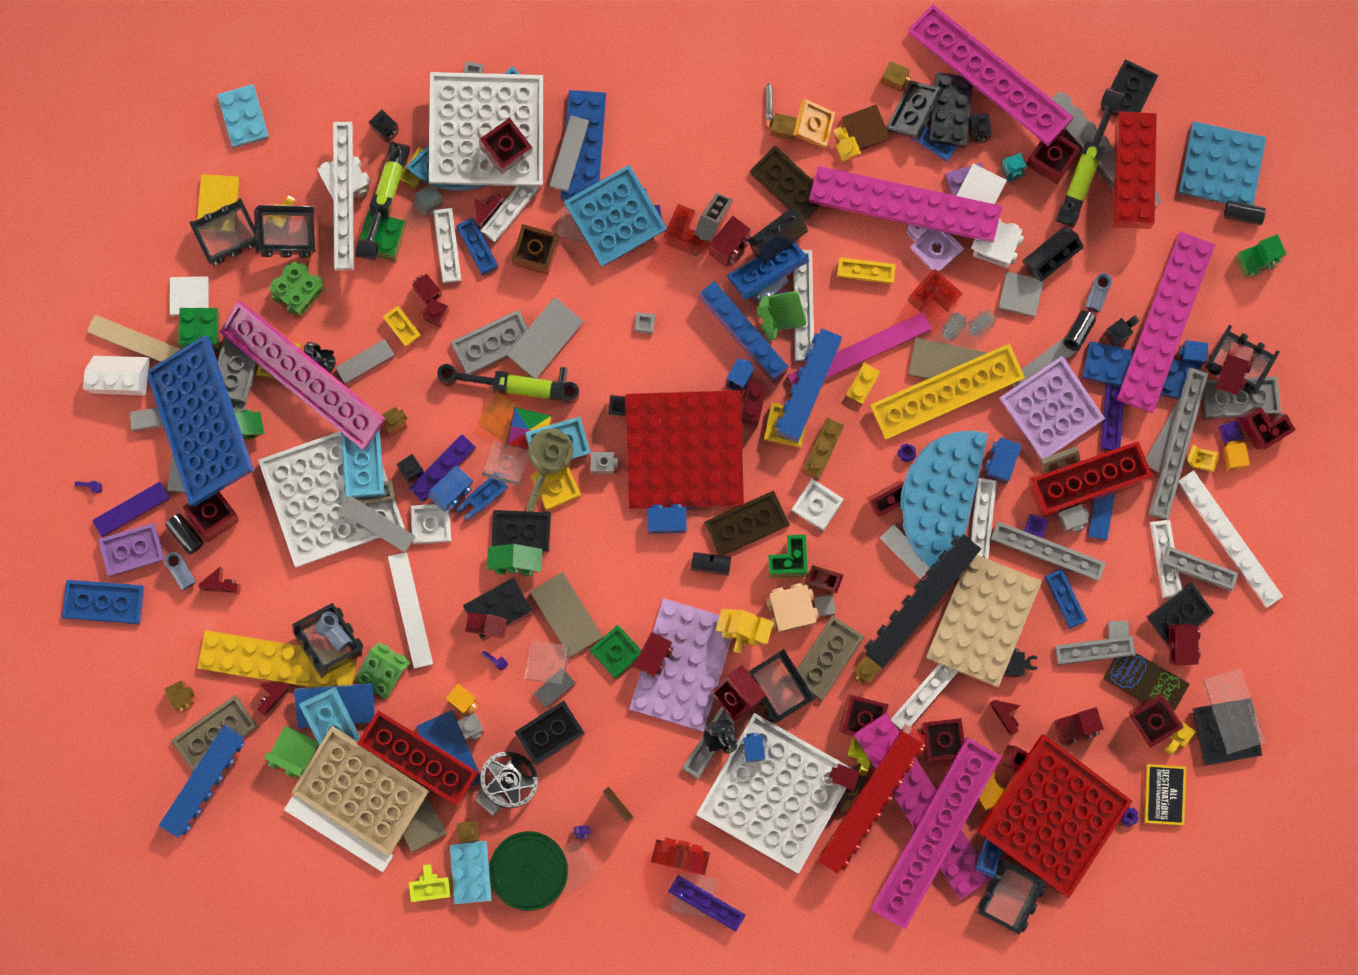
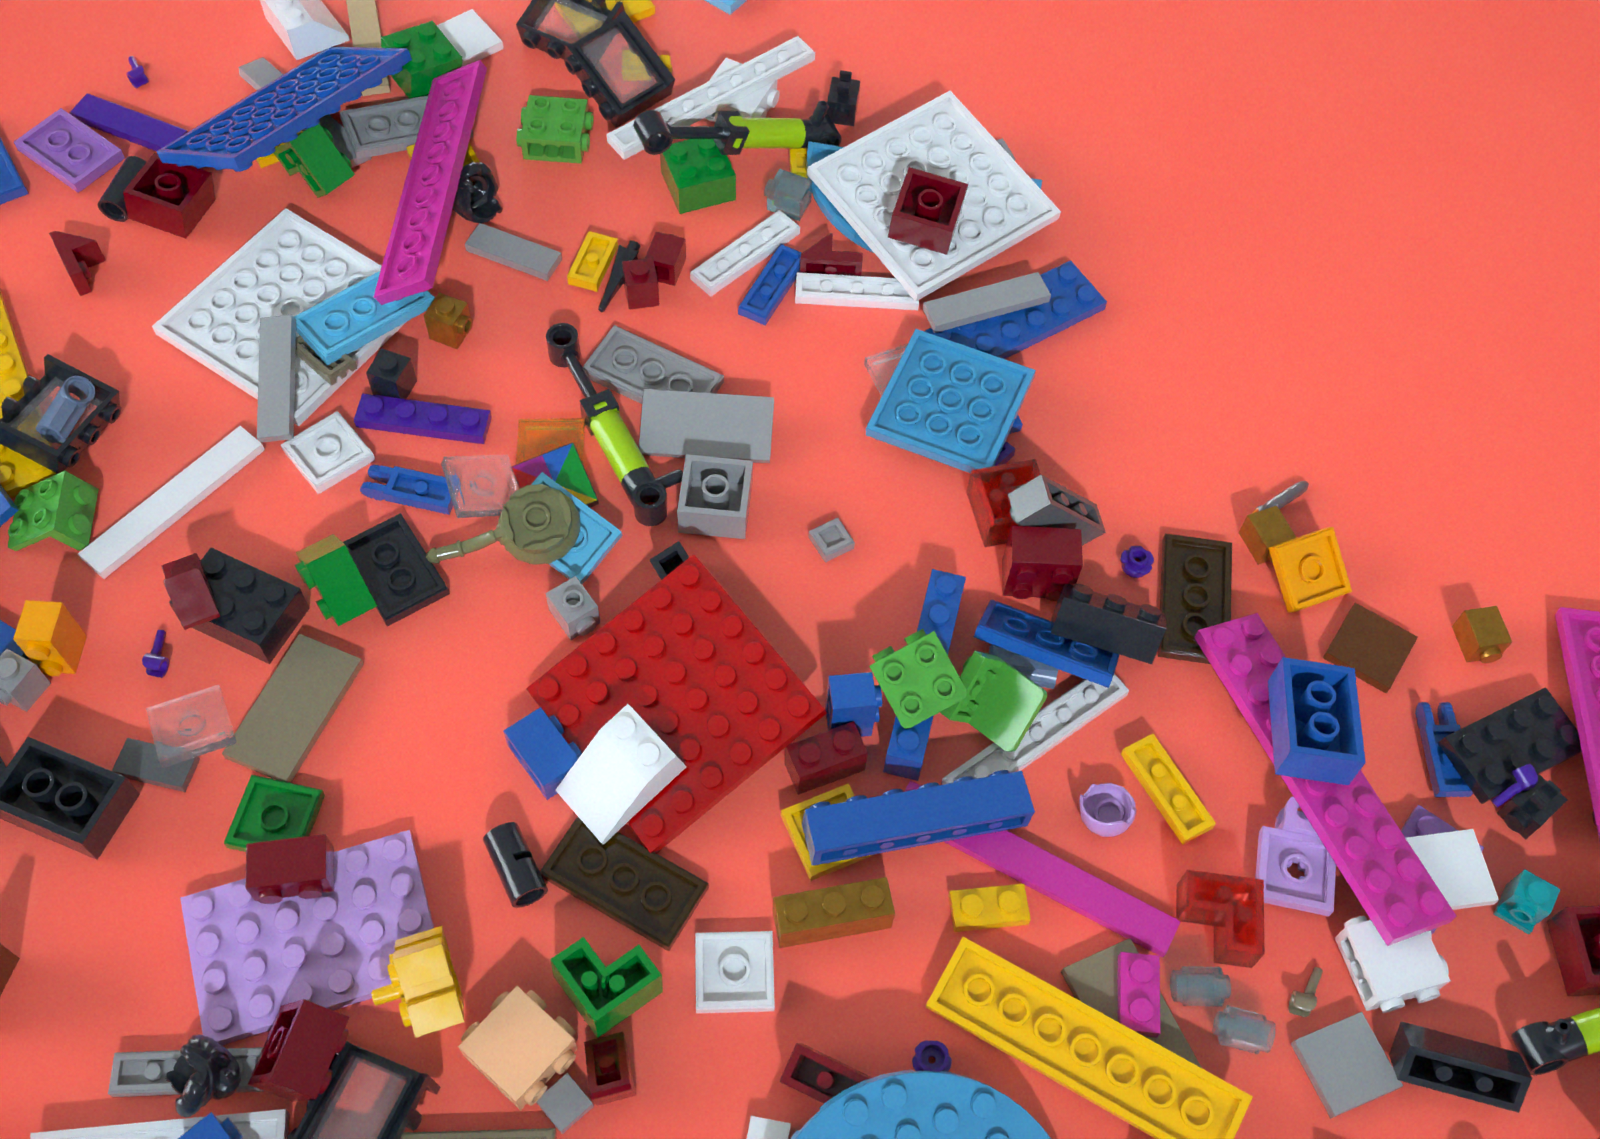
camera: 55 degrees right, 20 degrees down
(180, 572) = (74, 203): sand blue piece -> none
(413, 310) = (616, 279): none -> black piece
(450, 489) = (392, 437): blue brick -> none
(535, 249) = (822, 340): reddish brown brick -> none
(557, 489) = (494, 578): yellow tile -> none
(590, 361) = (715, 496): none -> light grey brick
(705, 495) = (618, 774): none -> white slope
(752, 340) = (918, 678): none -> bright green bracket
(753, 199) = (1134, 568): none -> dark purple plate
(848, 146) = (1322, 639): yellow plate -> none
(858, 303) = (1107, 809): none -> lavender hair
(889, 192) = (1315, 721): none -> blue brick
(914, 109) = (1464, 692): black tile -> none
(940, 352) = (1139, 993): none -> dark pink plate
(969, 123) = (1526, 780): none -> dark purple hand
(987, 291) = (1304, 1003): none -> dark tan hand

